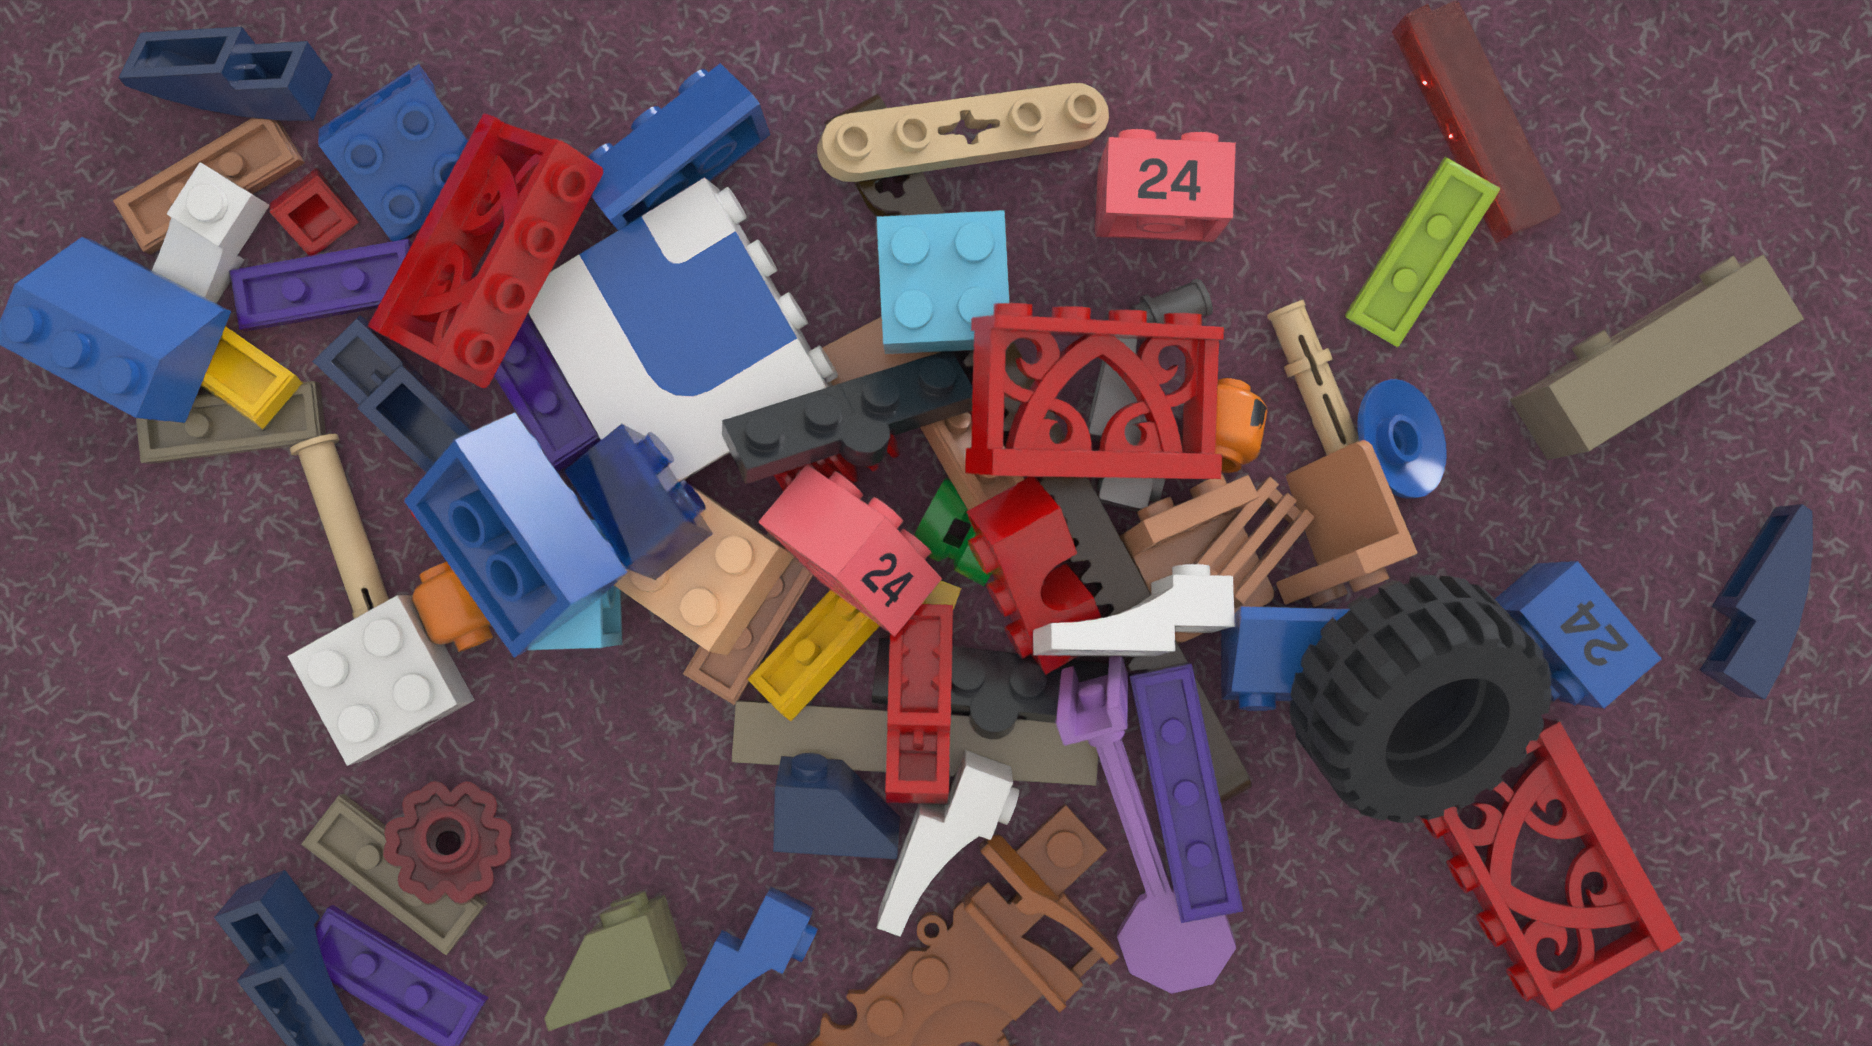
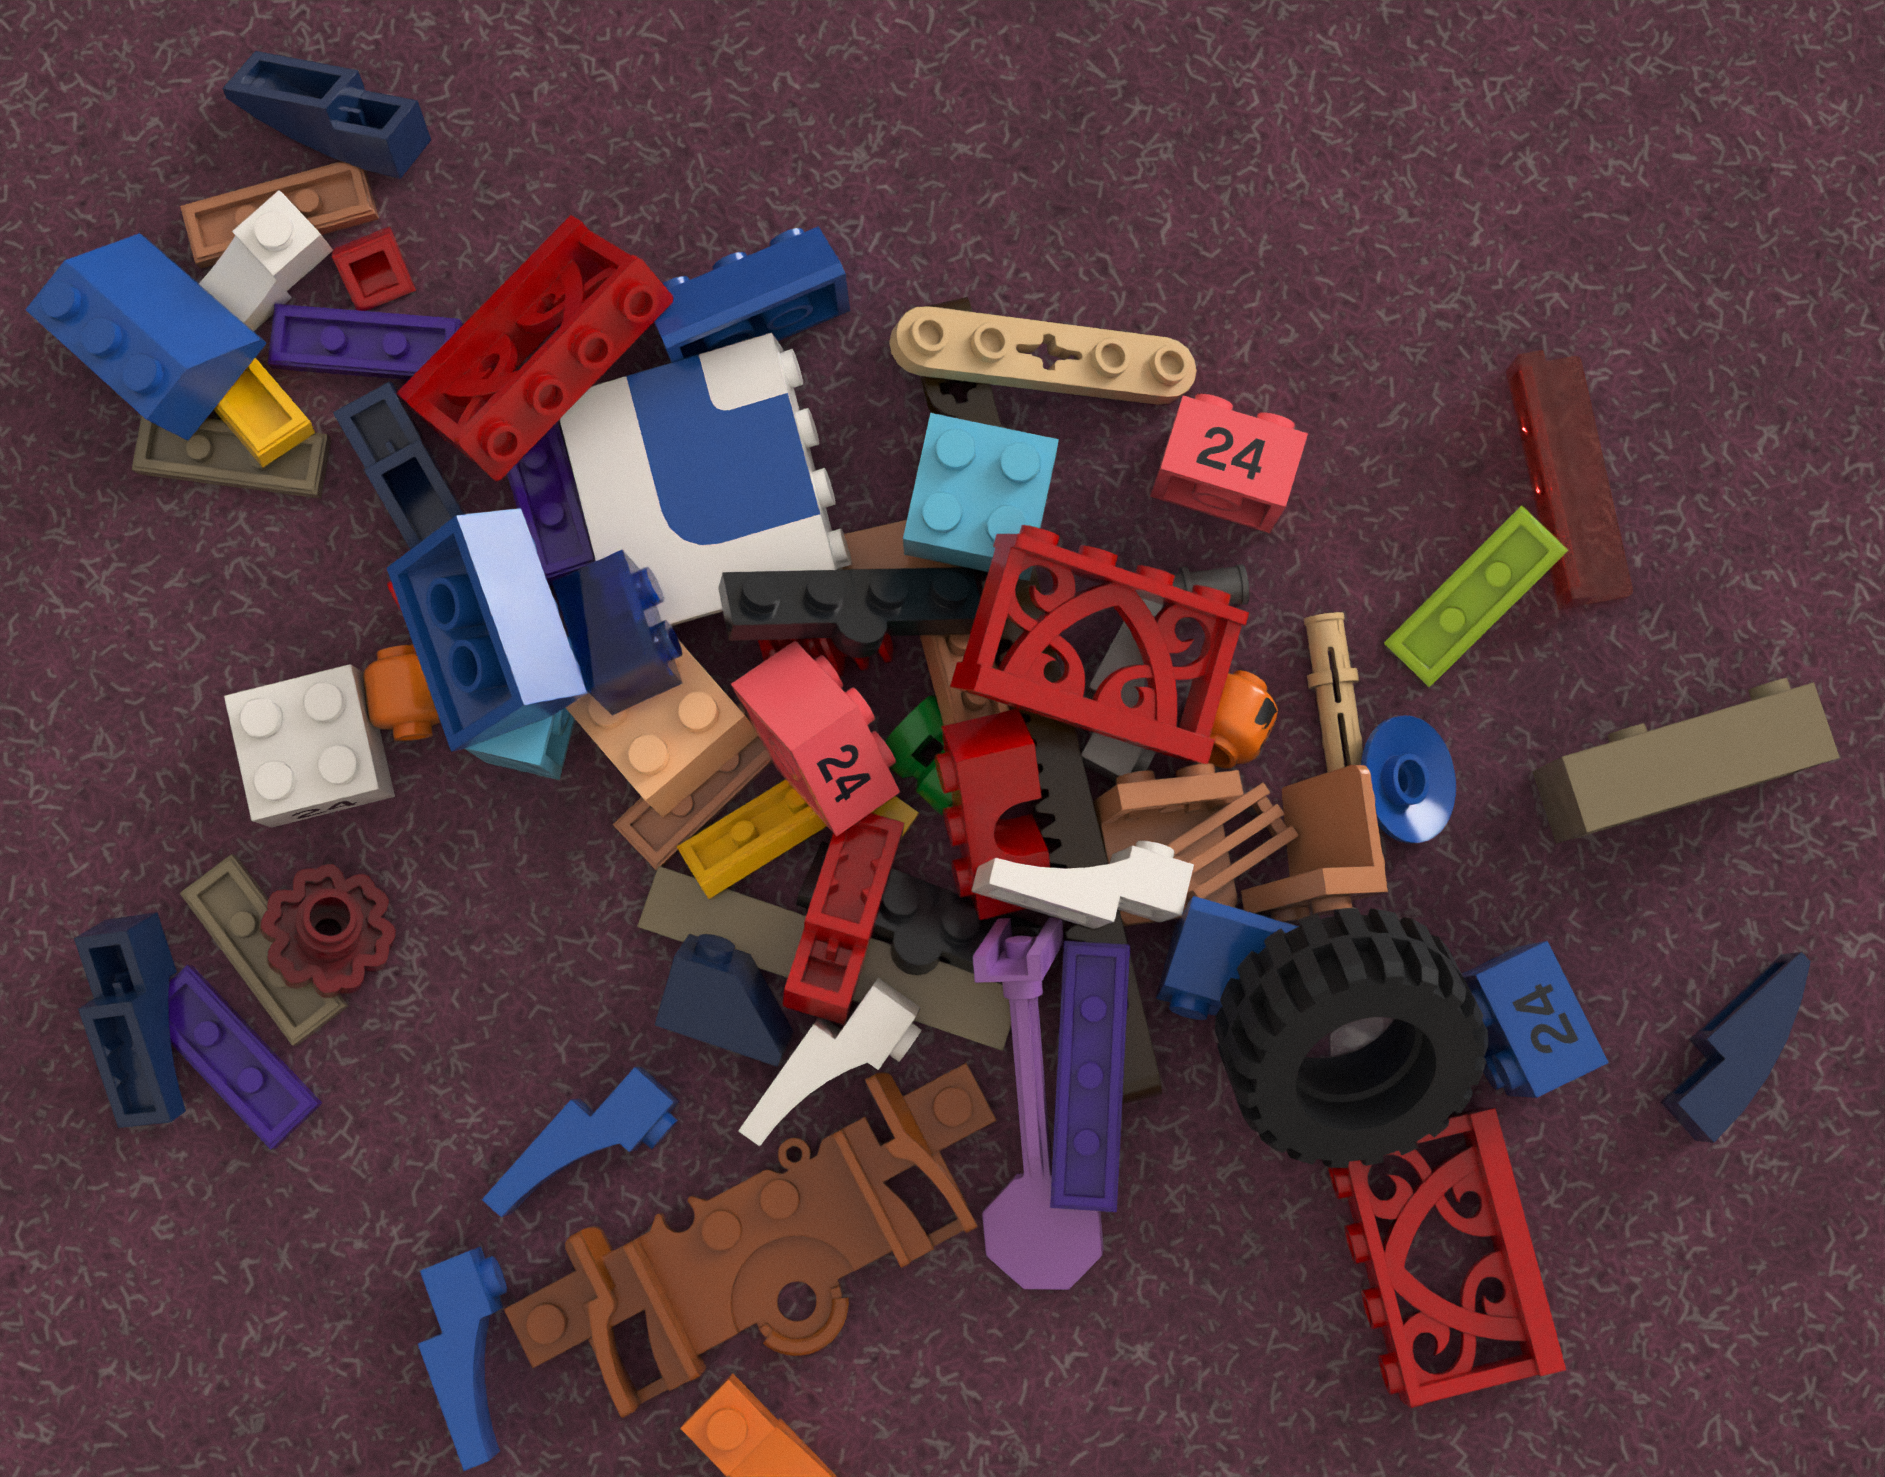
camera: 20 degrees right, 5 degrees down
(341, 521) = (313, 578): tan pin -> none
(396, 151) = (473, 230): blue bracket -> none
(620, 960) = (468, 1090): olive slope -> none

